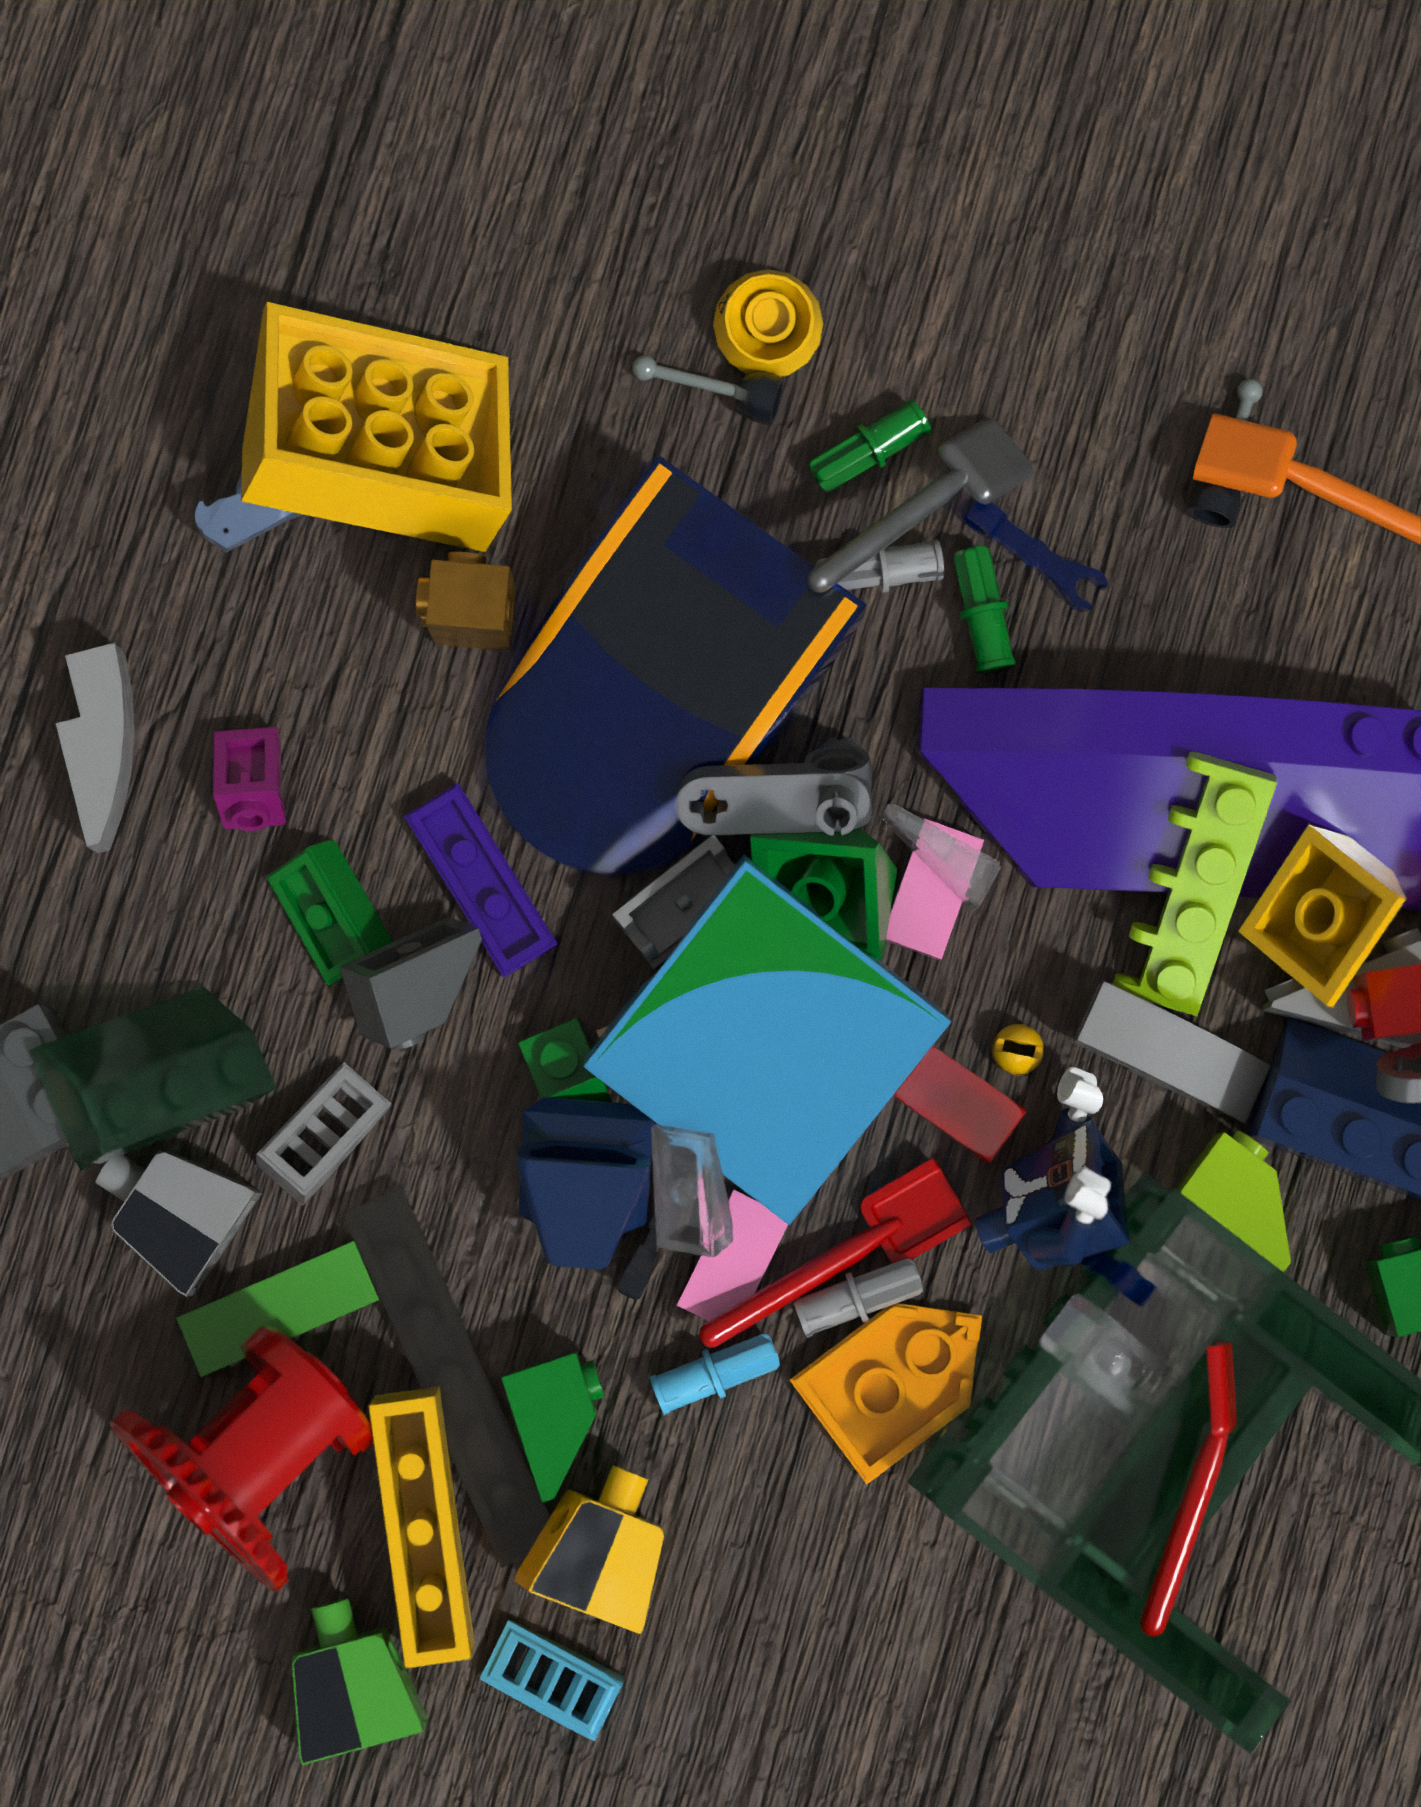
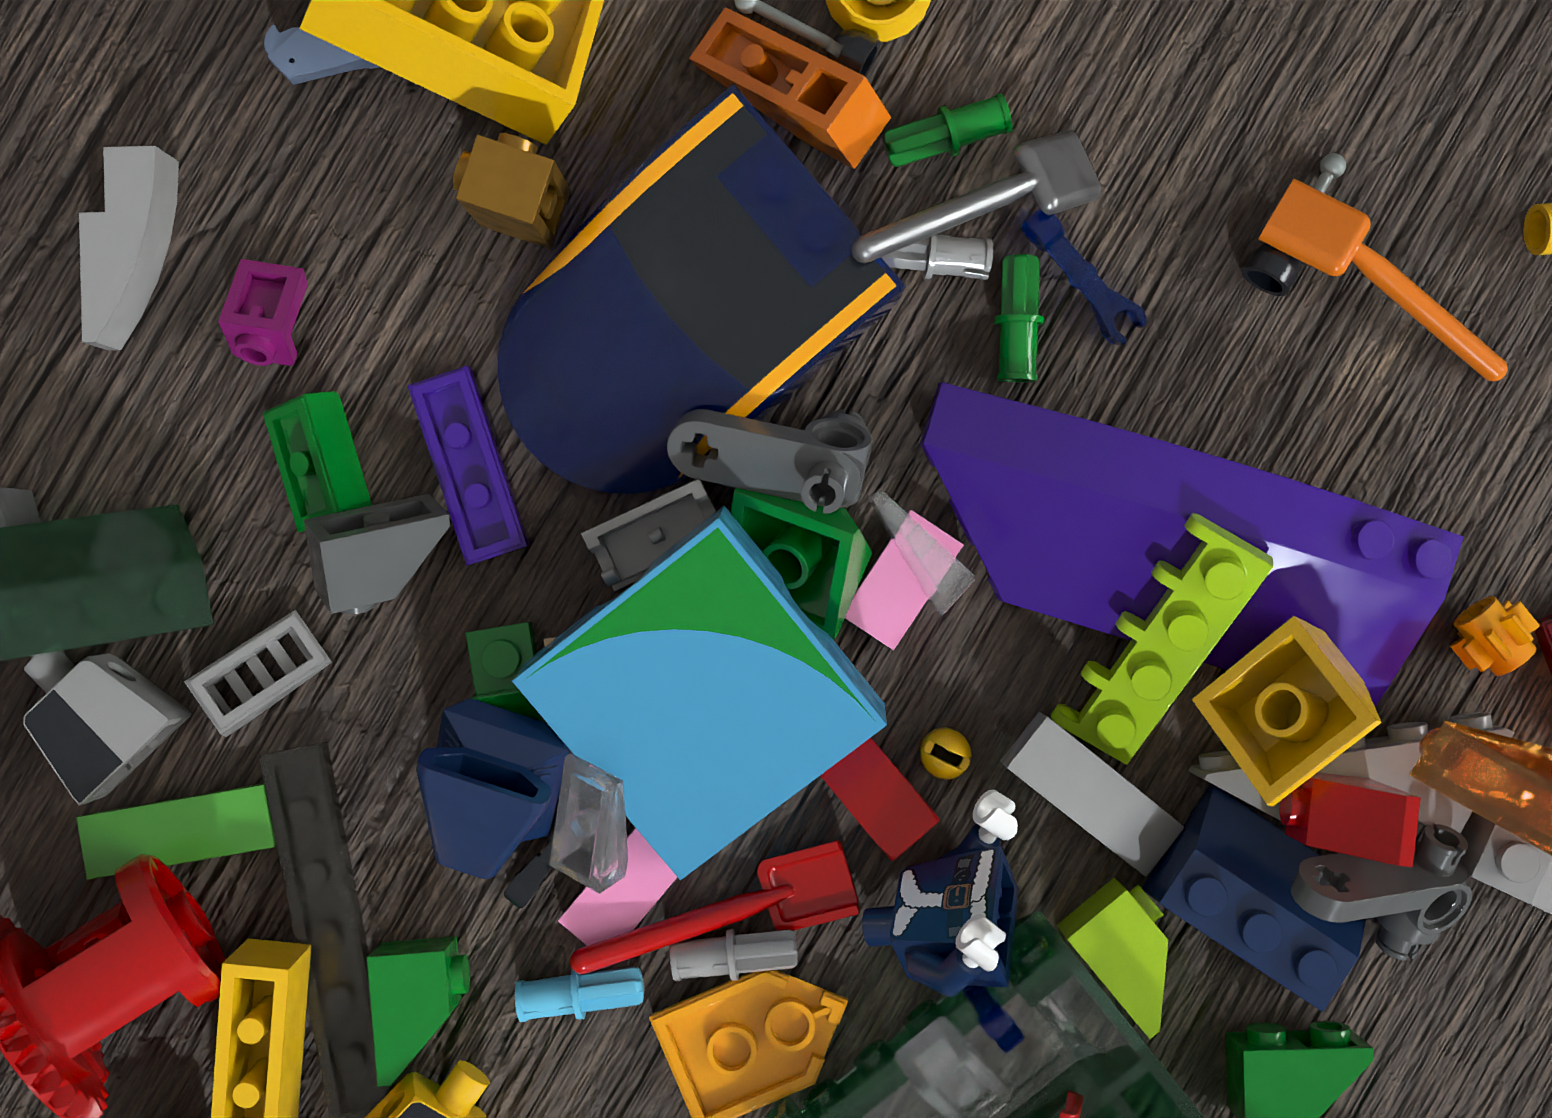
camera: 10 degrees right, 5 degrees up
(710, 440) = (794, 86): none -> orange slope

